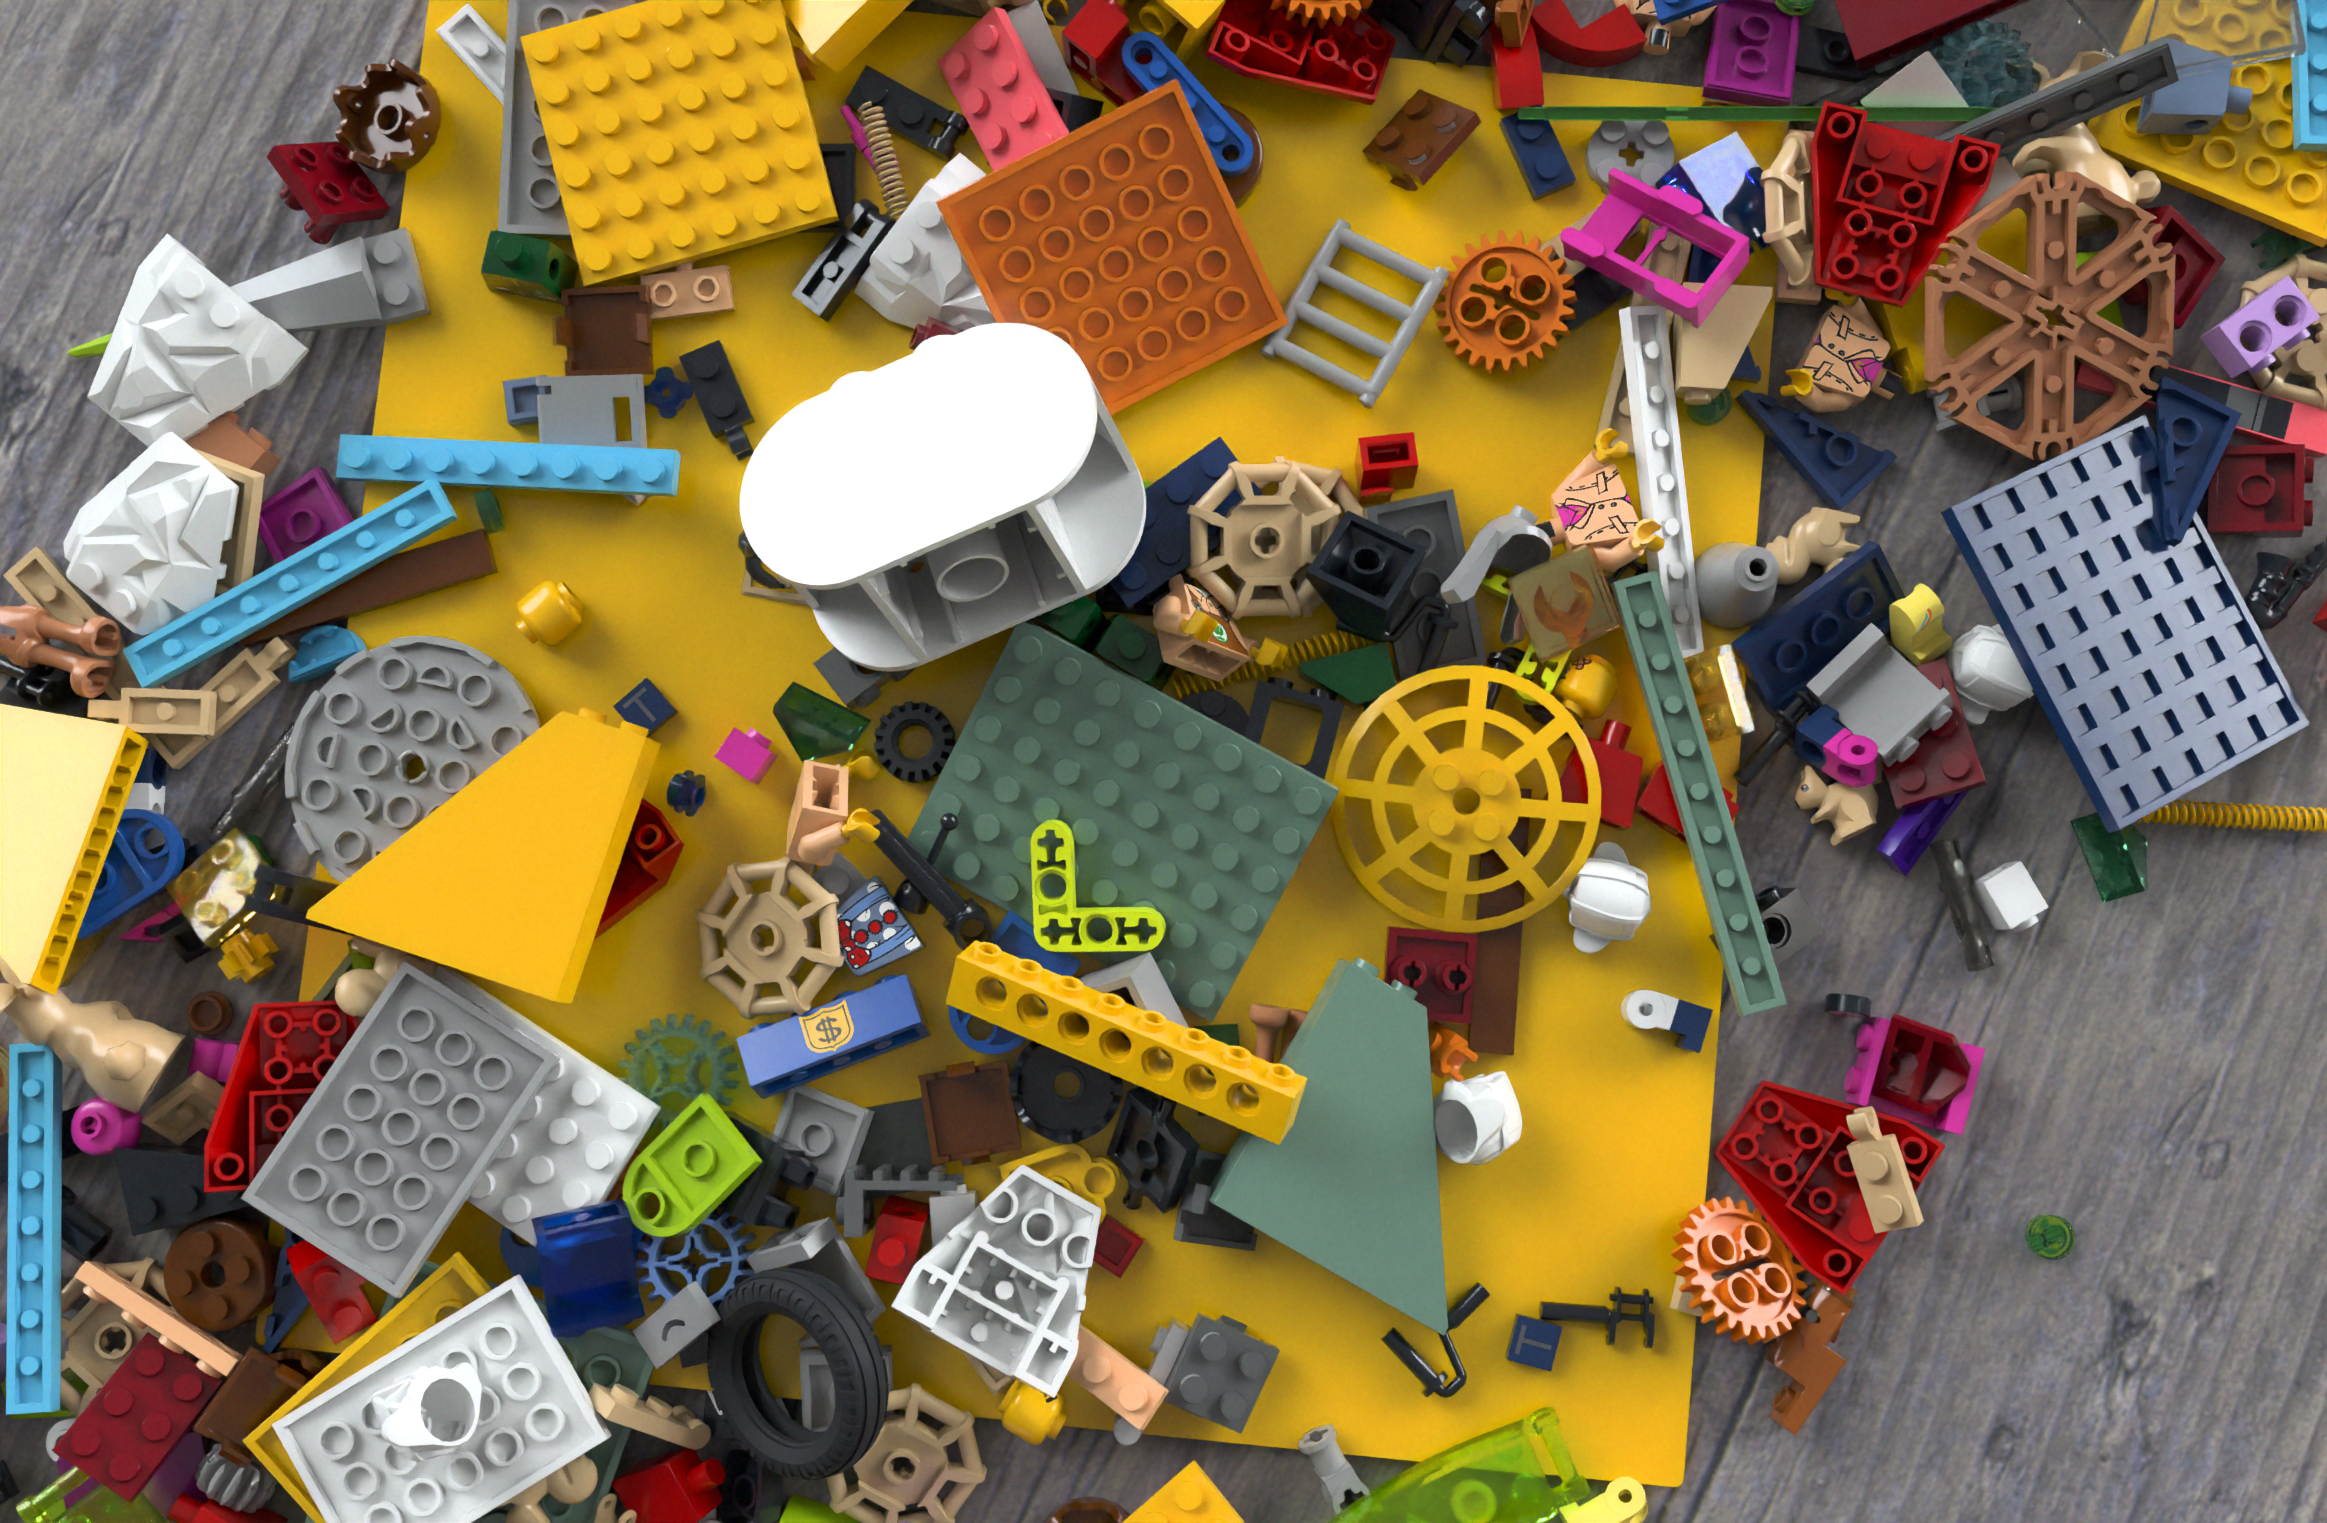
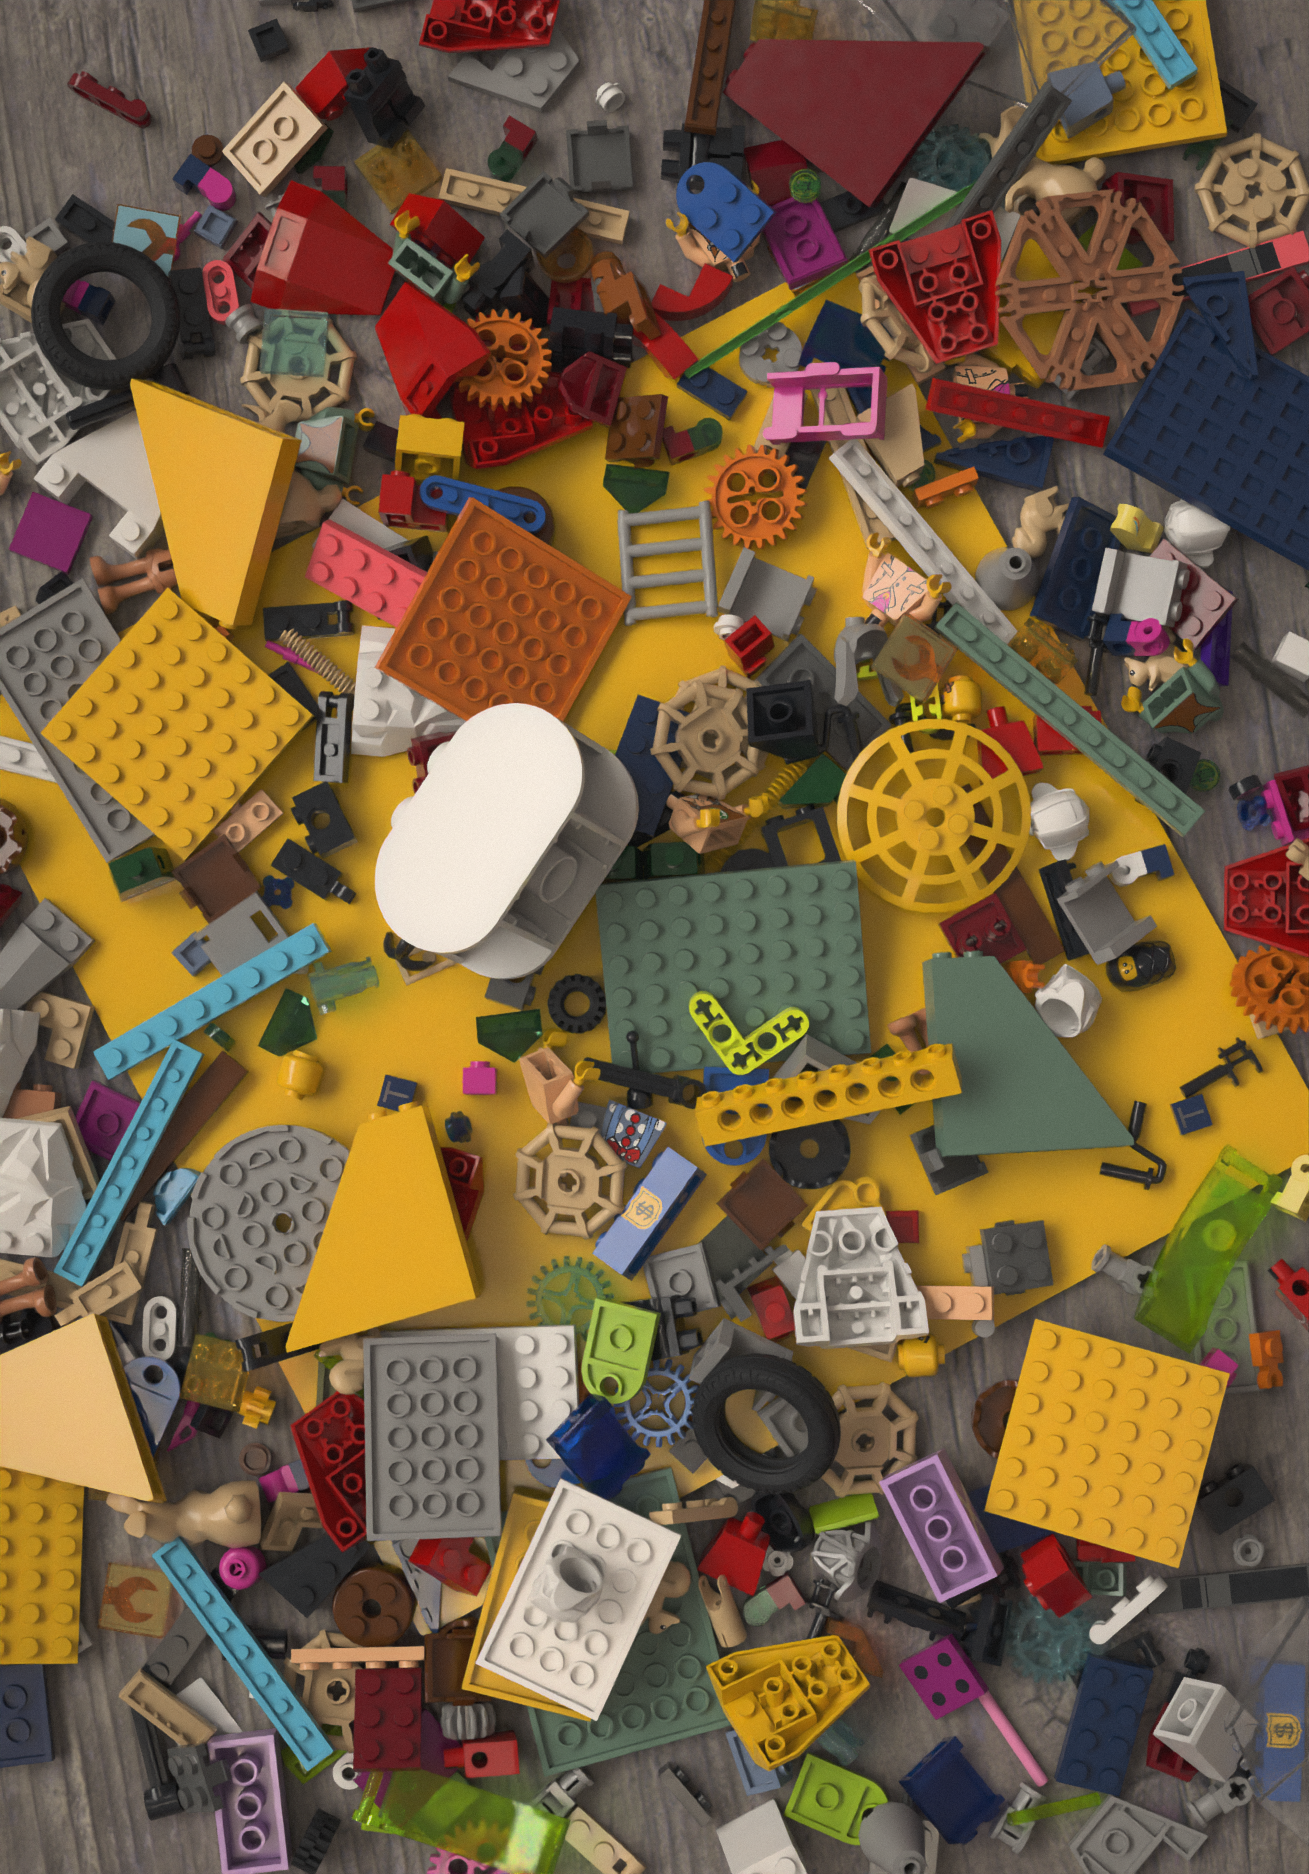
camera: 30 degrees left, 0 degrees up
(203, 791) = (160, 1328): none -> white plate
(339, 385) = (69, 1026): none -> tan plate
(577, 552) = (289, 1025): none -> clear green slope
(664, 539) = (340, 982): none -> clear light blue piece
(676, 1325) = (674, 1445): light grey tile -> none
(779, 370) = (337, 834): none -> black brick
(1152, 1150) = (887, 1151): black plate -> none
(1375, 204) = (635, 486): none -> clear green slope
(1375, 425) = (727, 625): none -> white plate
(1403, 57) = (592, 387): none -> dark red slope
(1446, 422) = (767, 593): none -> light grey panel
(1475, 194) = (693, 441): none -> leg
(1549, 1010) = (1055, 879): none -> black plate
(1582, 1043) = (1101, 914): none -> light grey panel
(1590, 1130) = (1141, 966): none -> black piece
(1712, 432) = (958, 484): none -> orange plate
(1810, 963) = (1205, 776): none -> clear green tile
(1827, 1035) = (1245, 813): none -> clear blue plate
(1843, 859) = (1183, 700): none -> sand green torso
(1870, 401) = (1017, 412): none -> red plate
(2259, 326) = (1217, 210): lavender brick -> none

